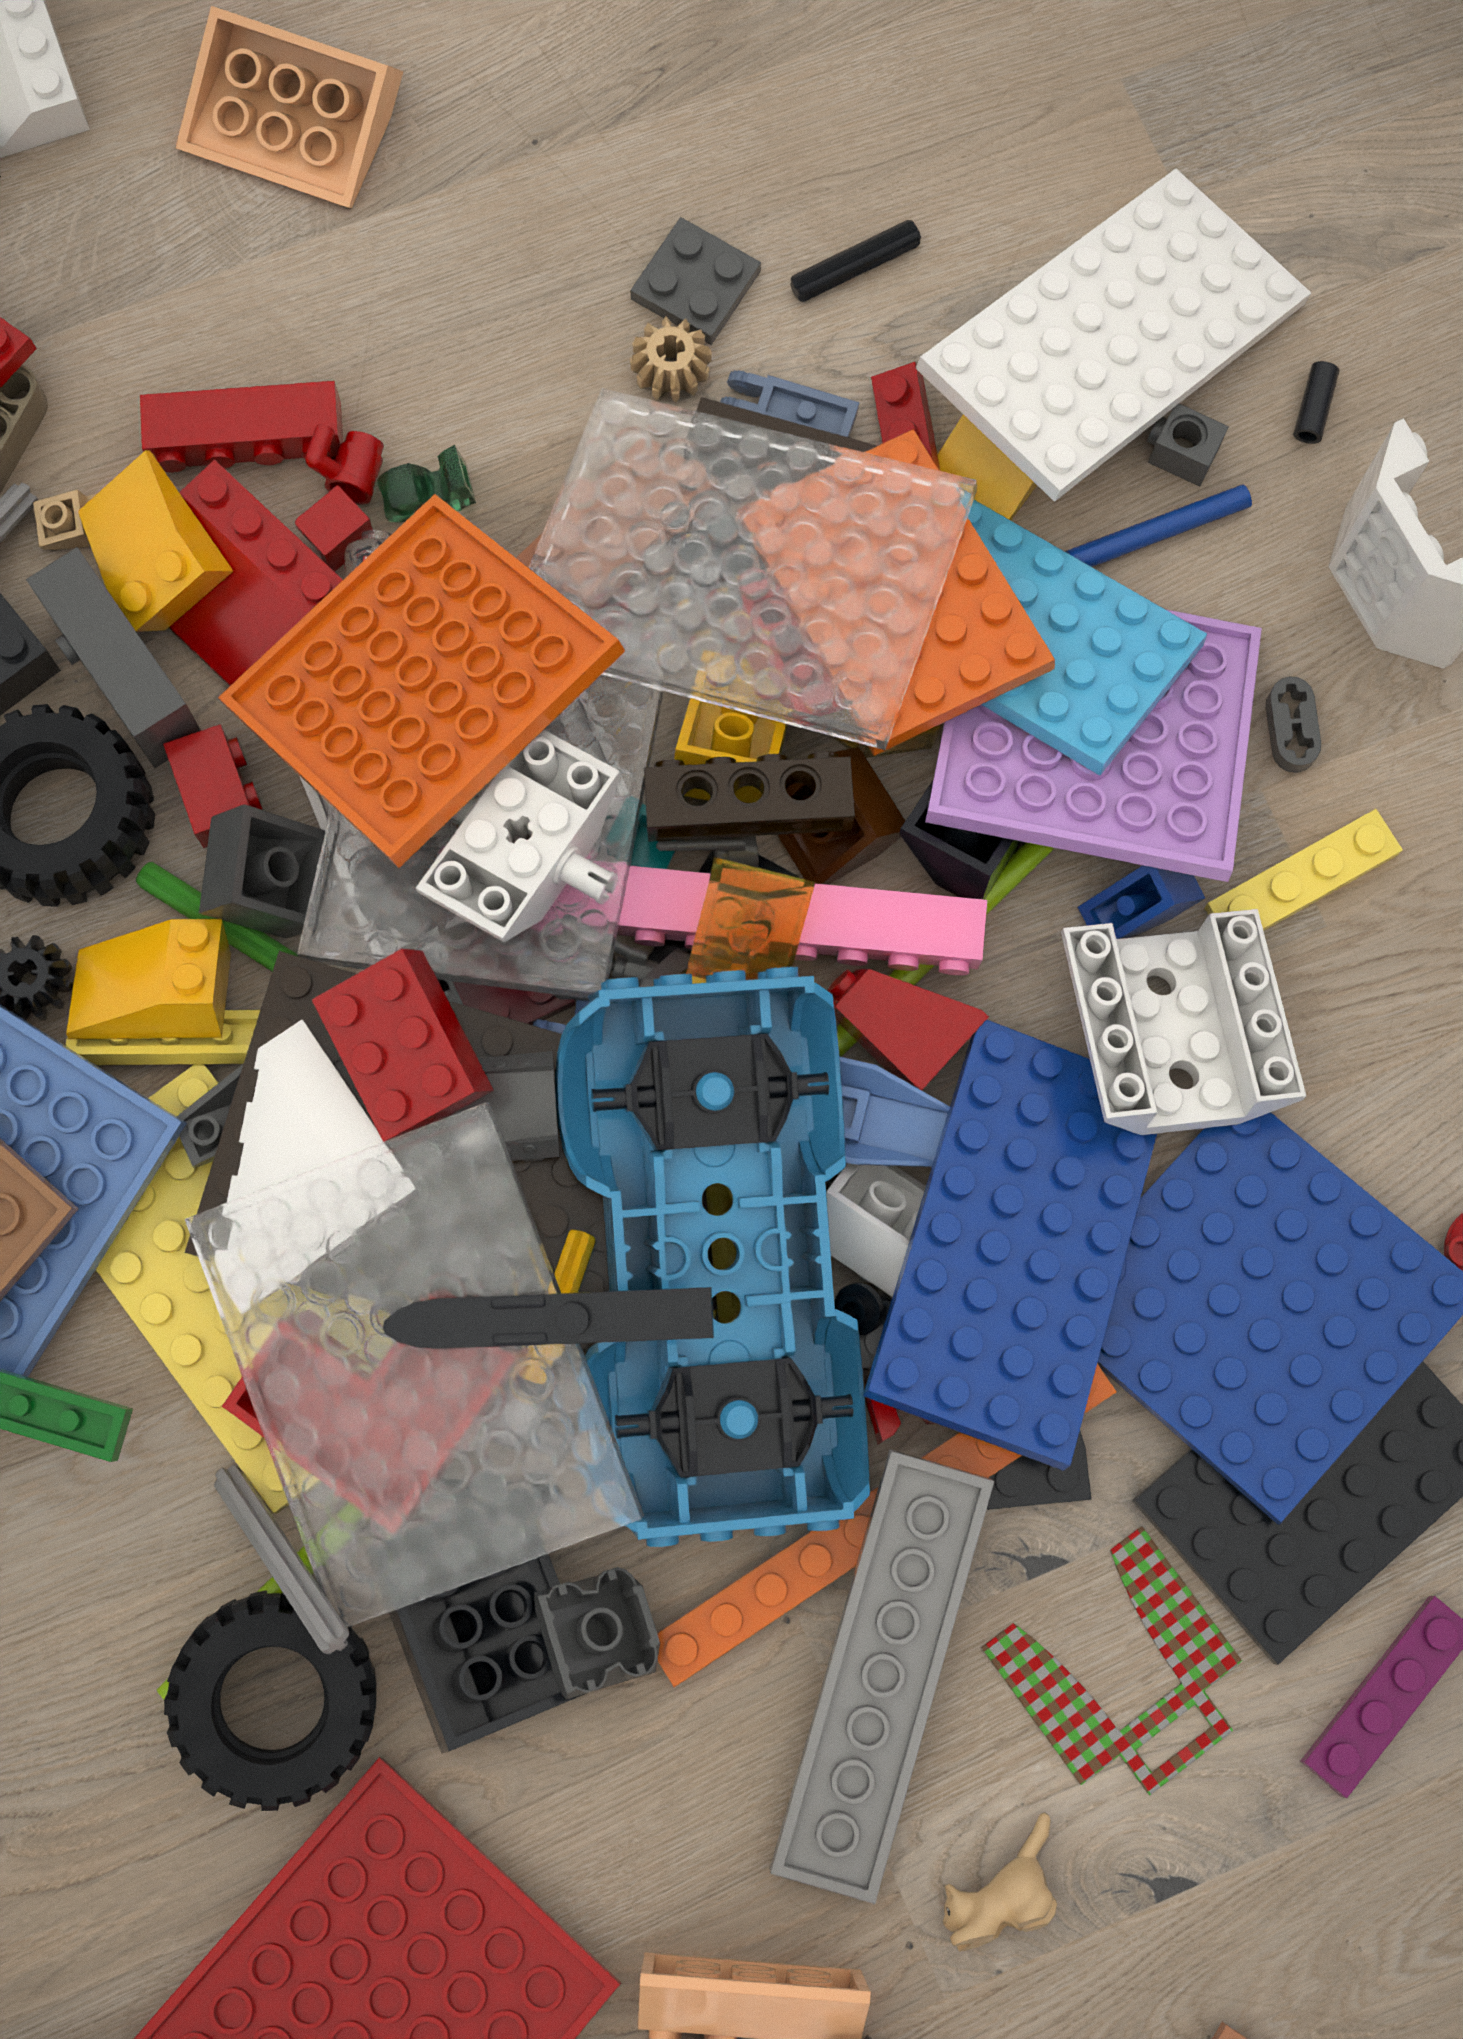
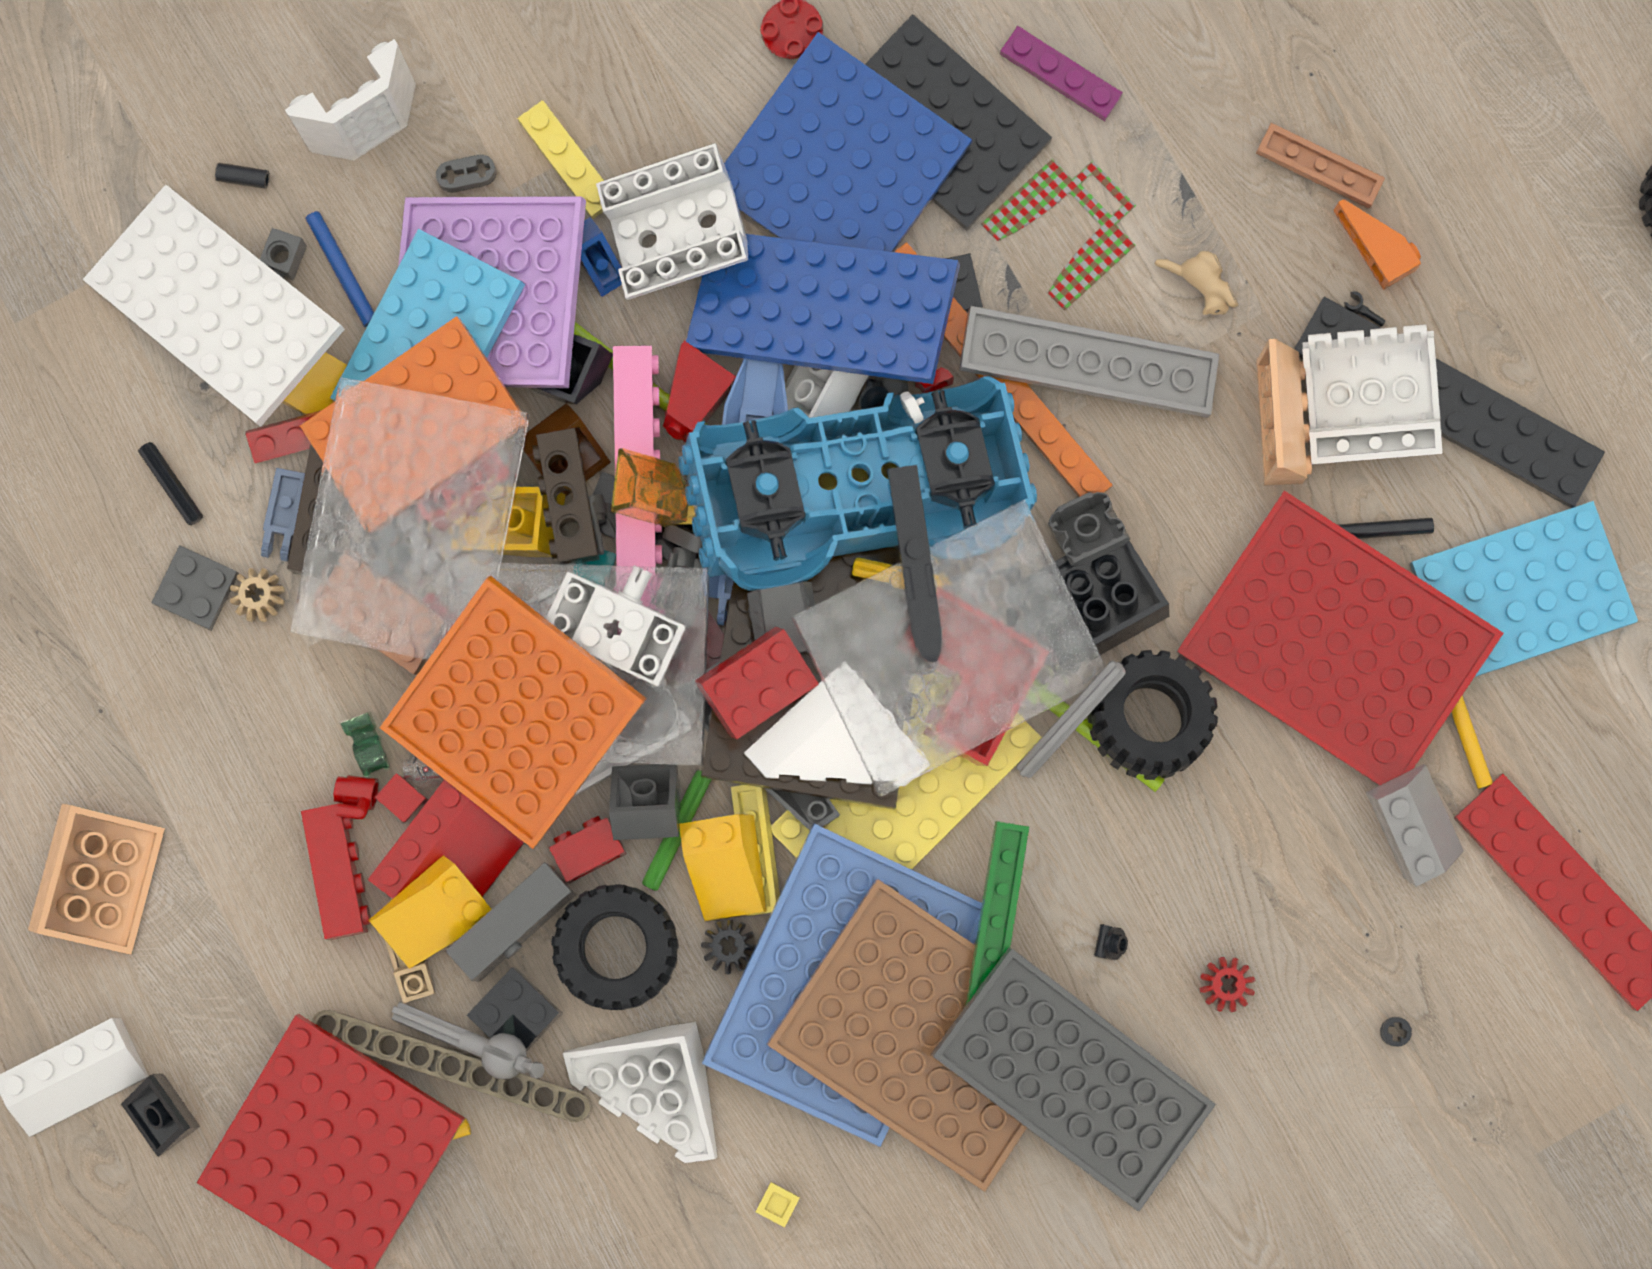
camera: 90 degrees left, 5 degrees up
(830, 1358) = (911, 406): none -> white piece

